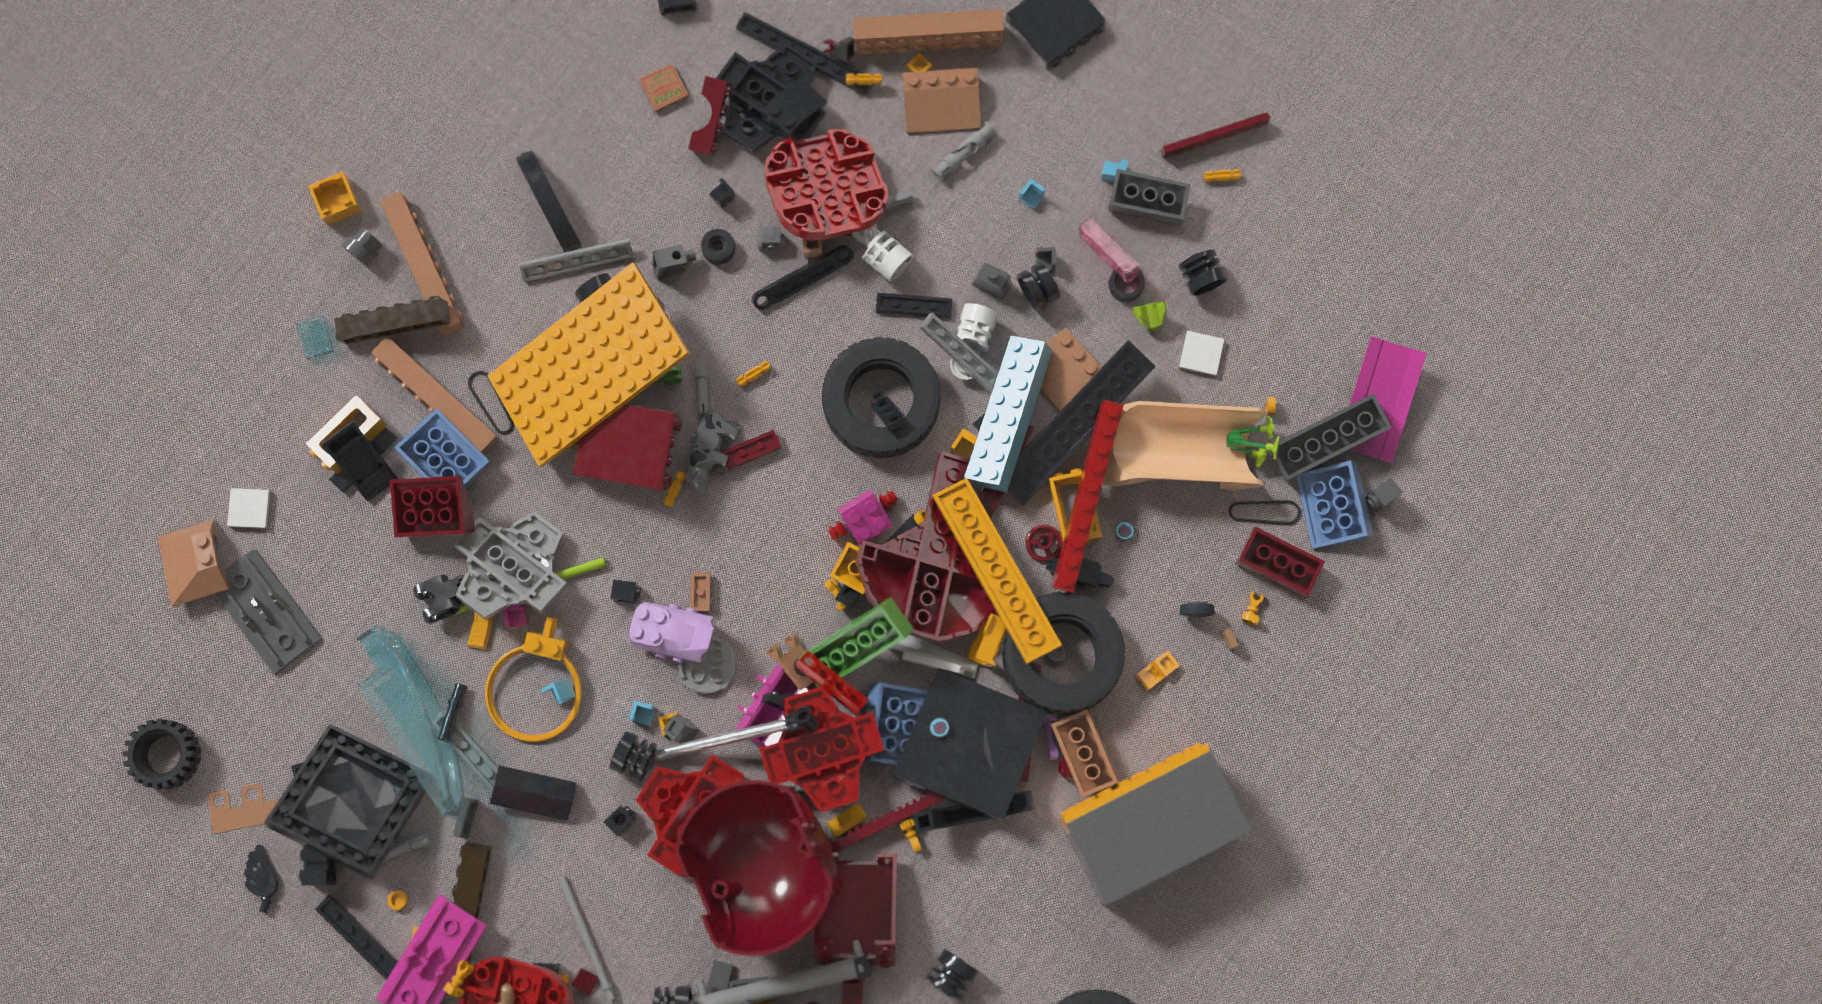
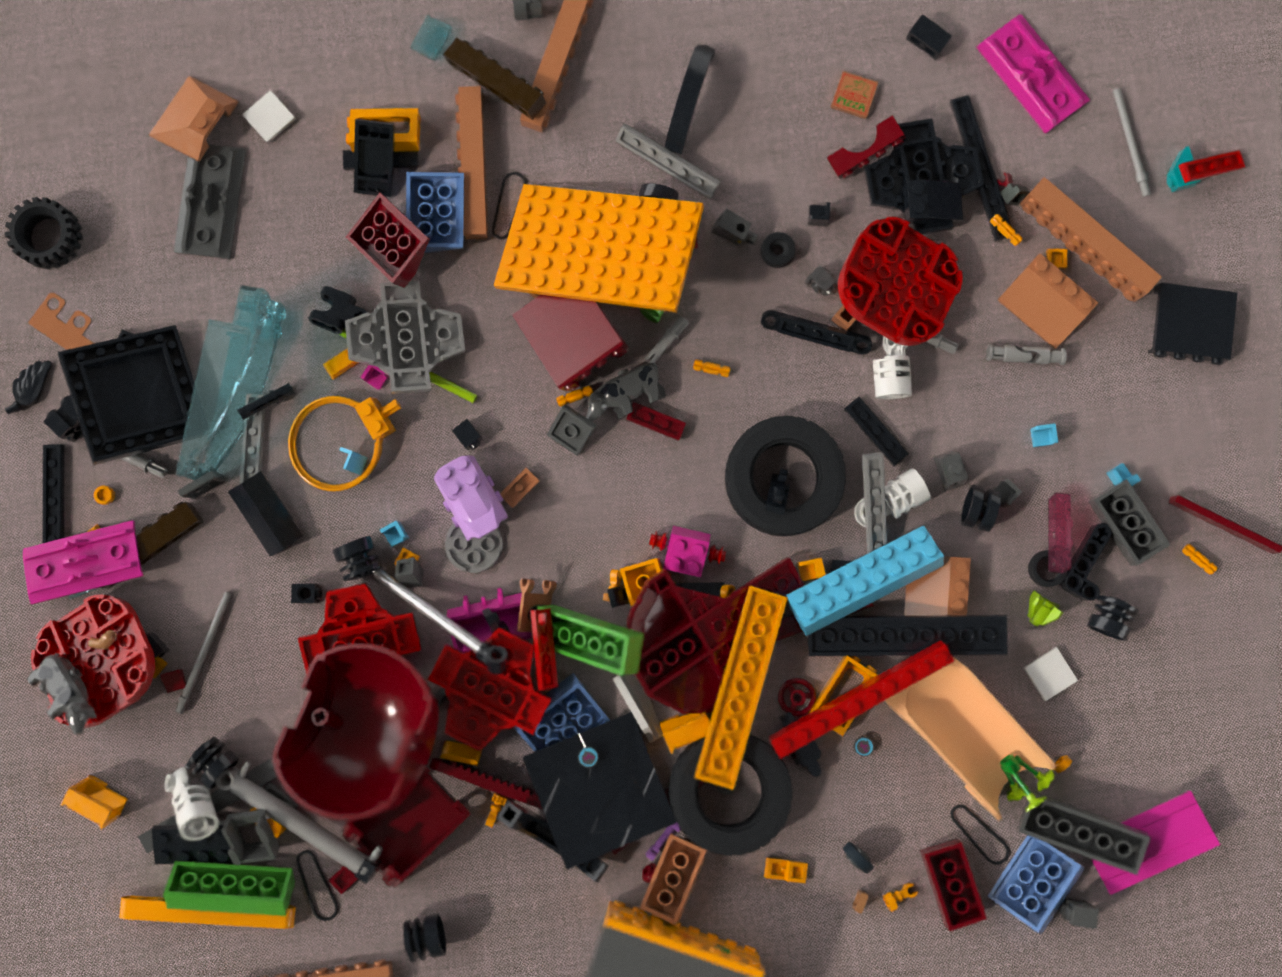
camera: 45 degrees right, 5 degrees up
(463, 970) = (77, 596): light orange piece -> none
(697, 514) = (571, 429): none -> dark grey tile
(1148, 250) = (1089, 560): none -> black beam

